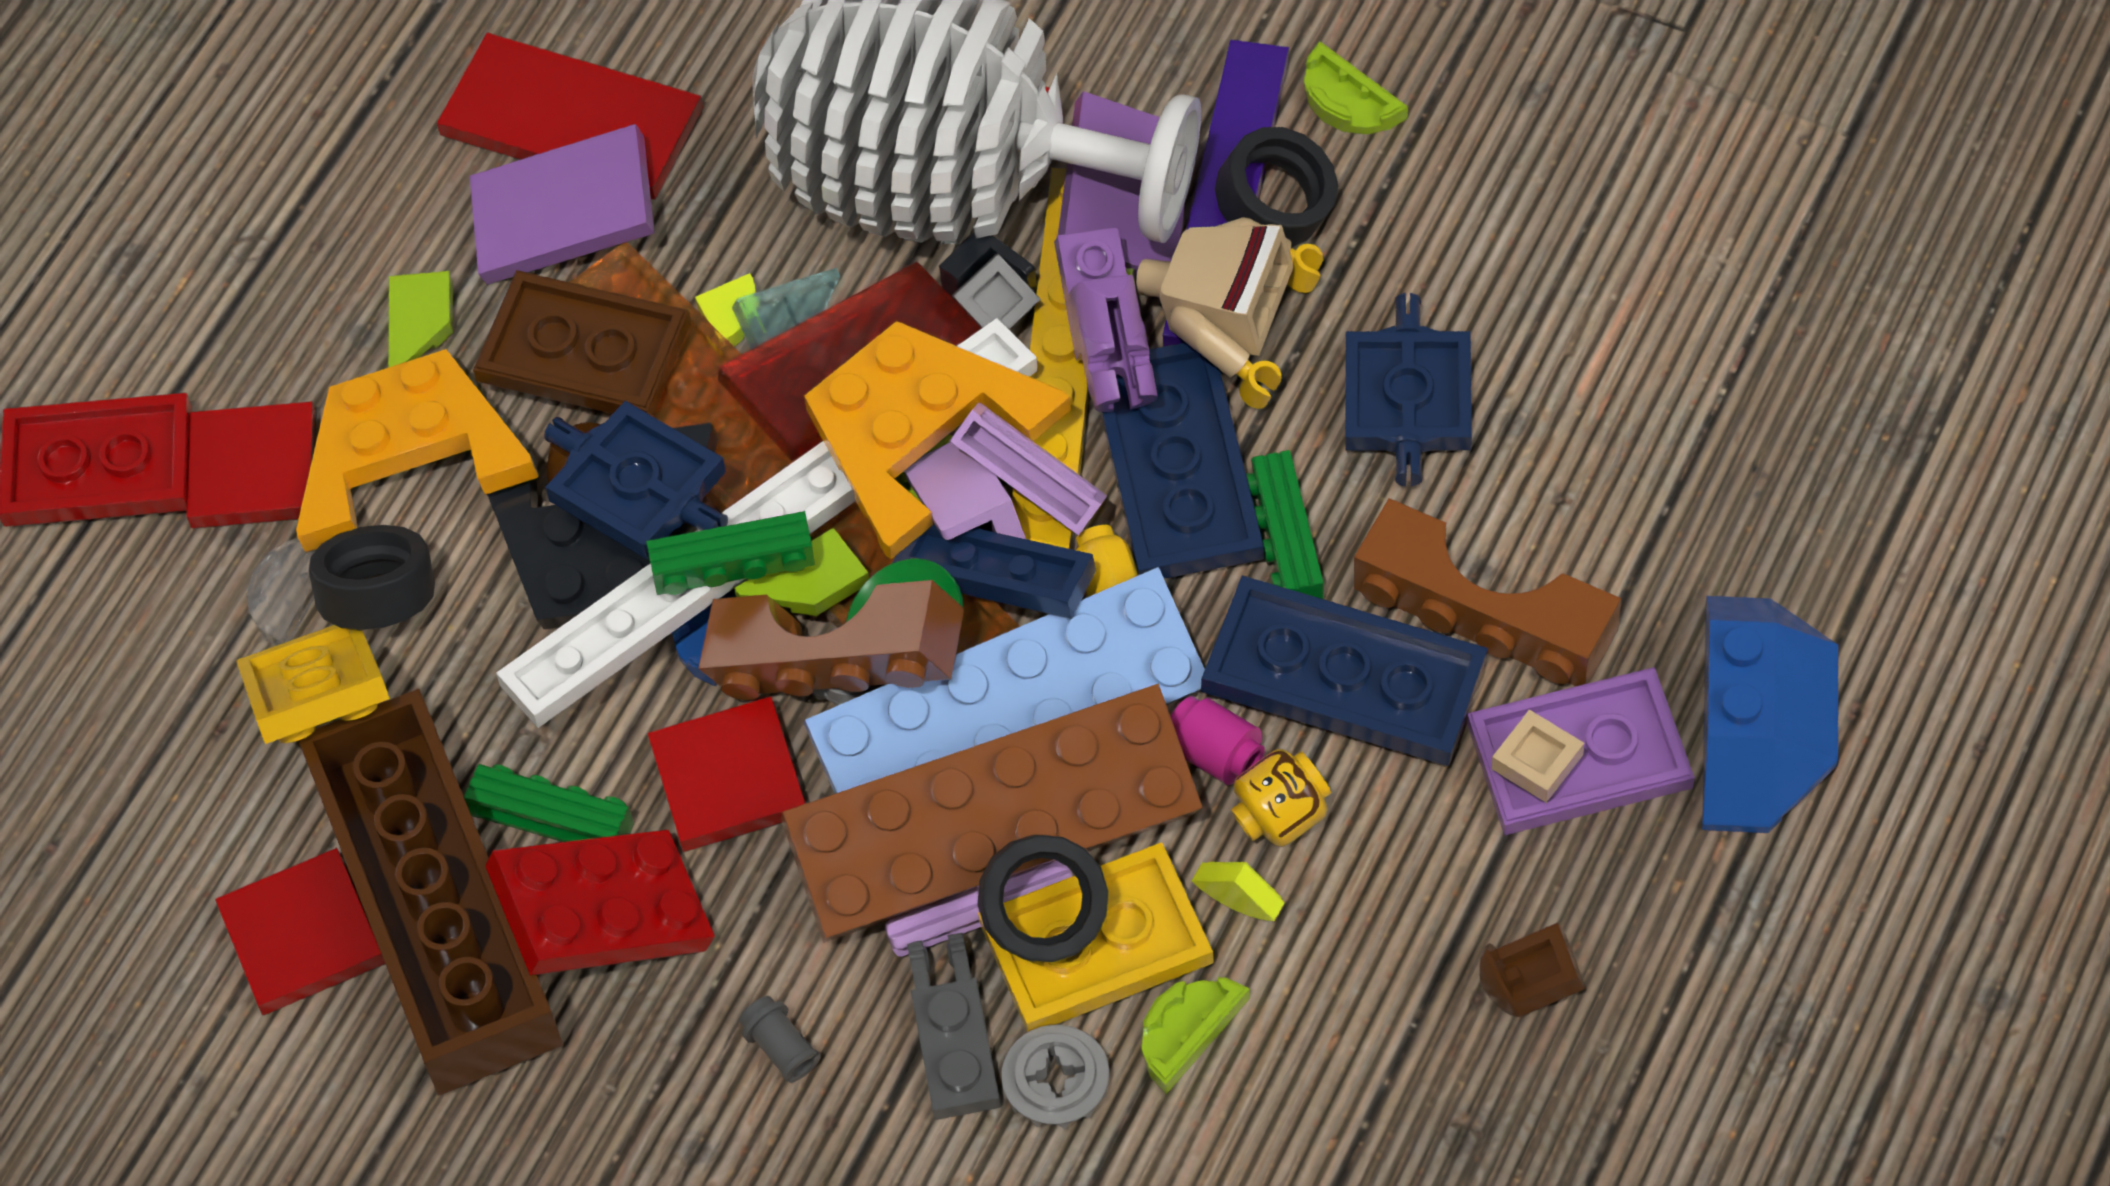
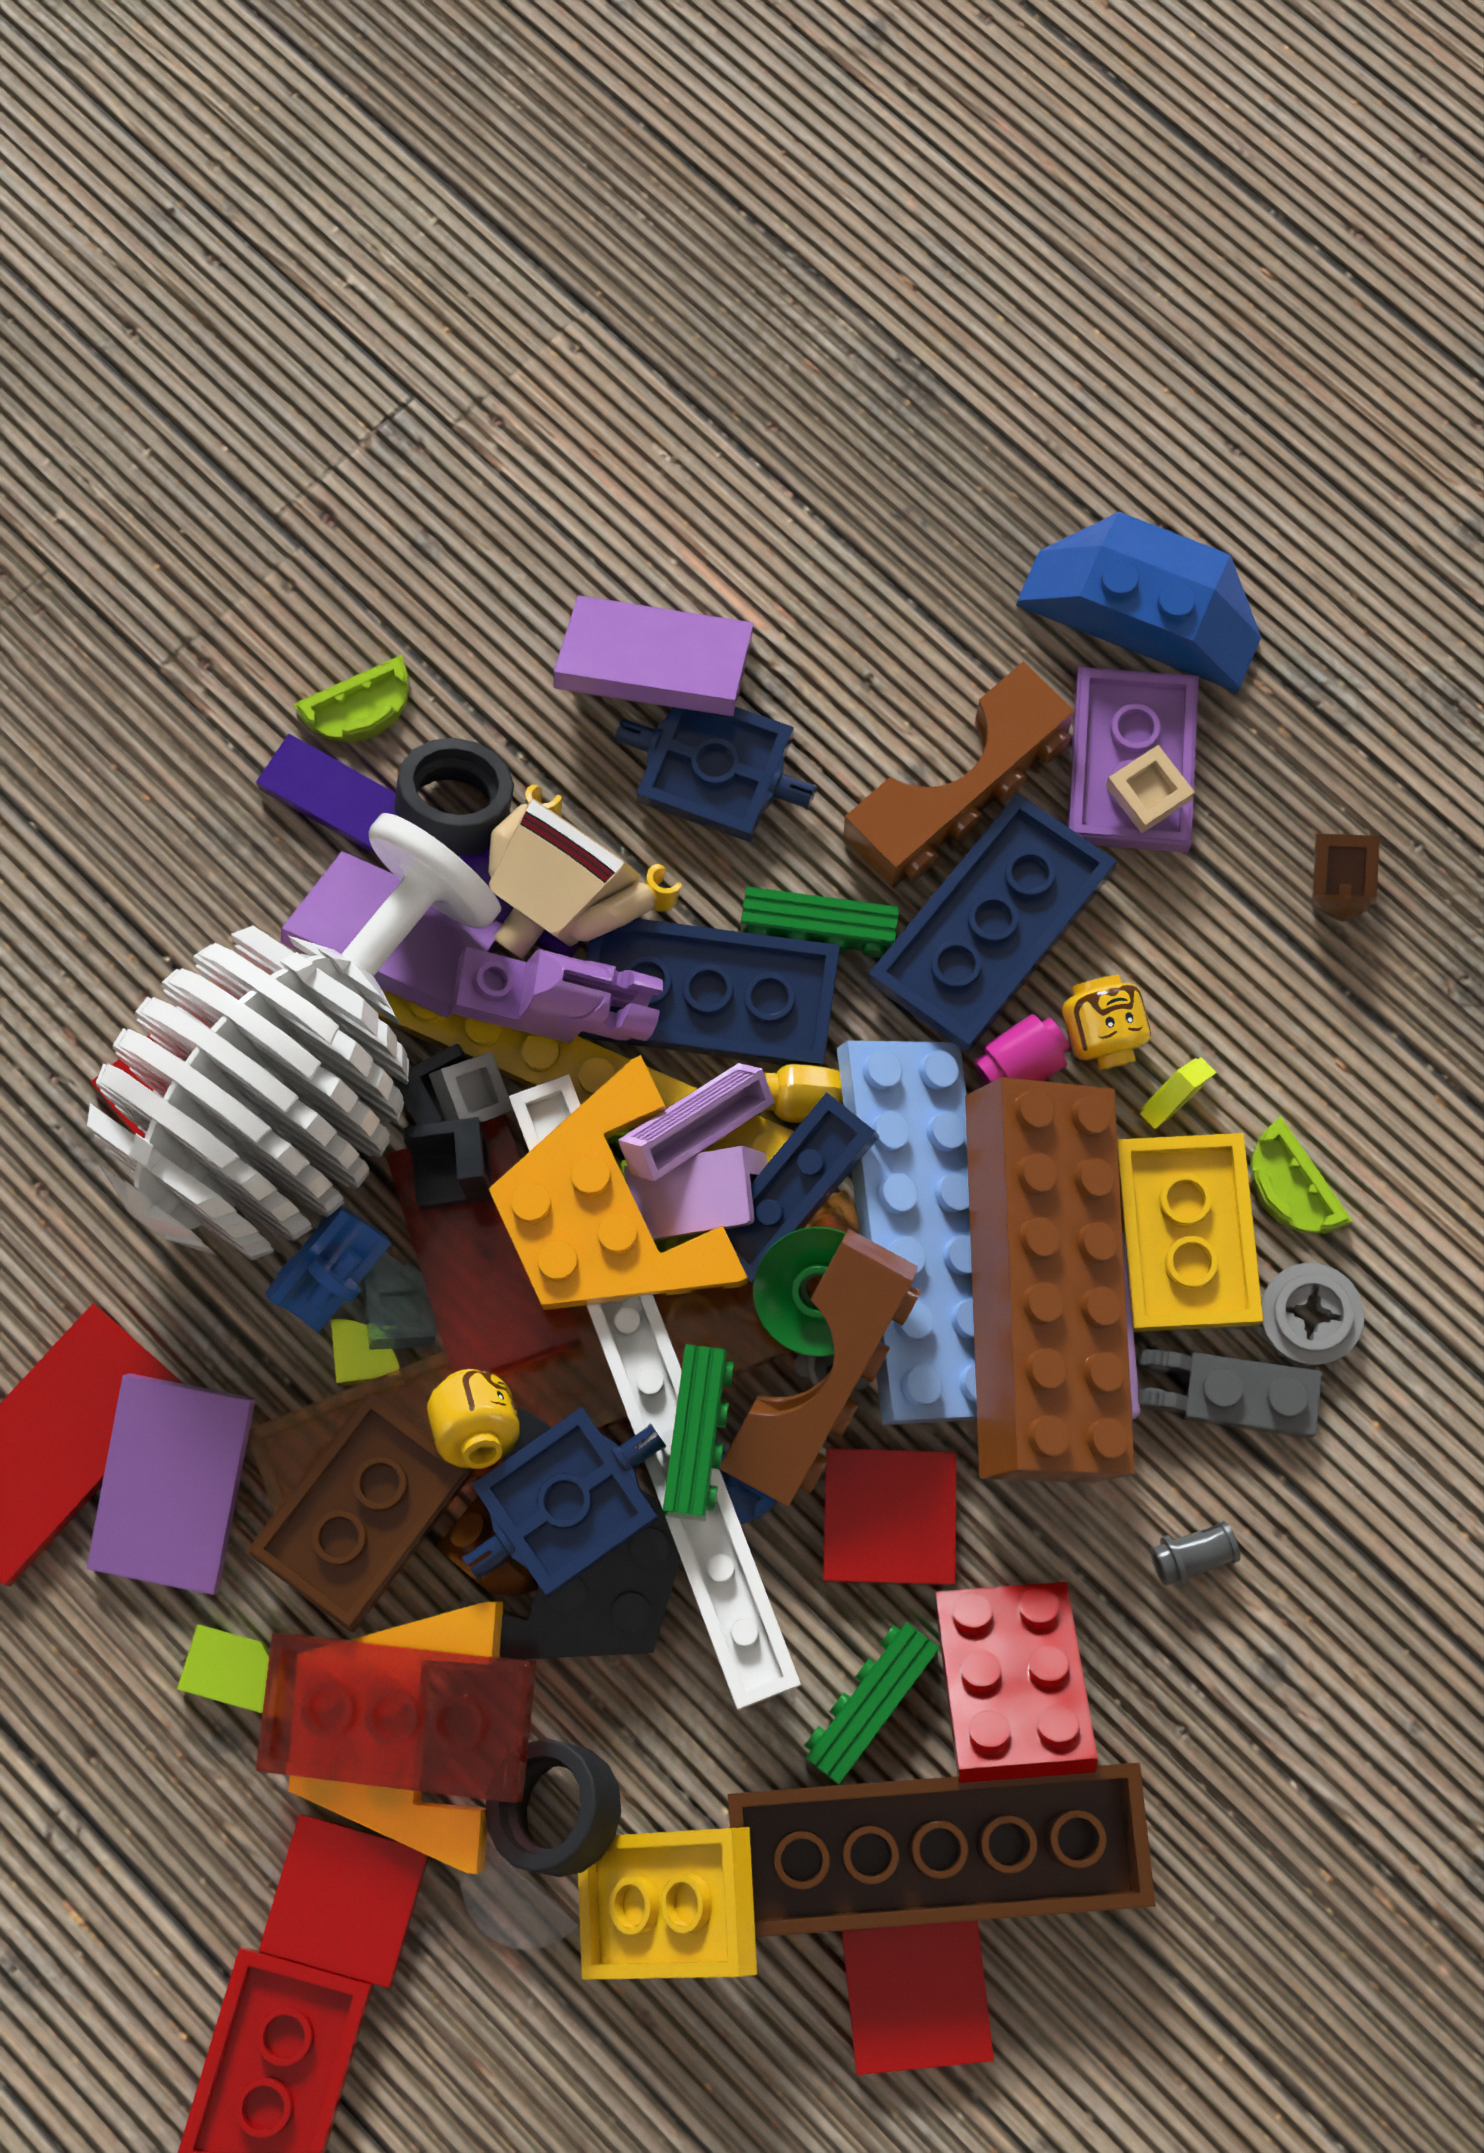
camera: 75 degrees left, 15 degrees up
(409, 424) = (397, 1717): none -> clear red tile
(686, 386) = (473, 1419): none -> yellow head
(792, 244) = (328, 1268): none -> blue hips
(815, 587) = (734, 1335): lime tile -> none
(924, 302) = (450, 1163): none -> black panel
(1093, 901) = (1207, 1246): black tyre -> none
(1493, 299) = (654, 655): none -> medium lavender tile

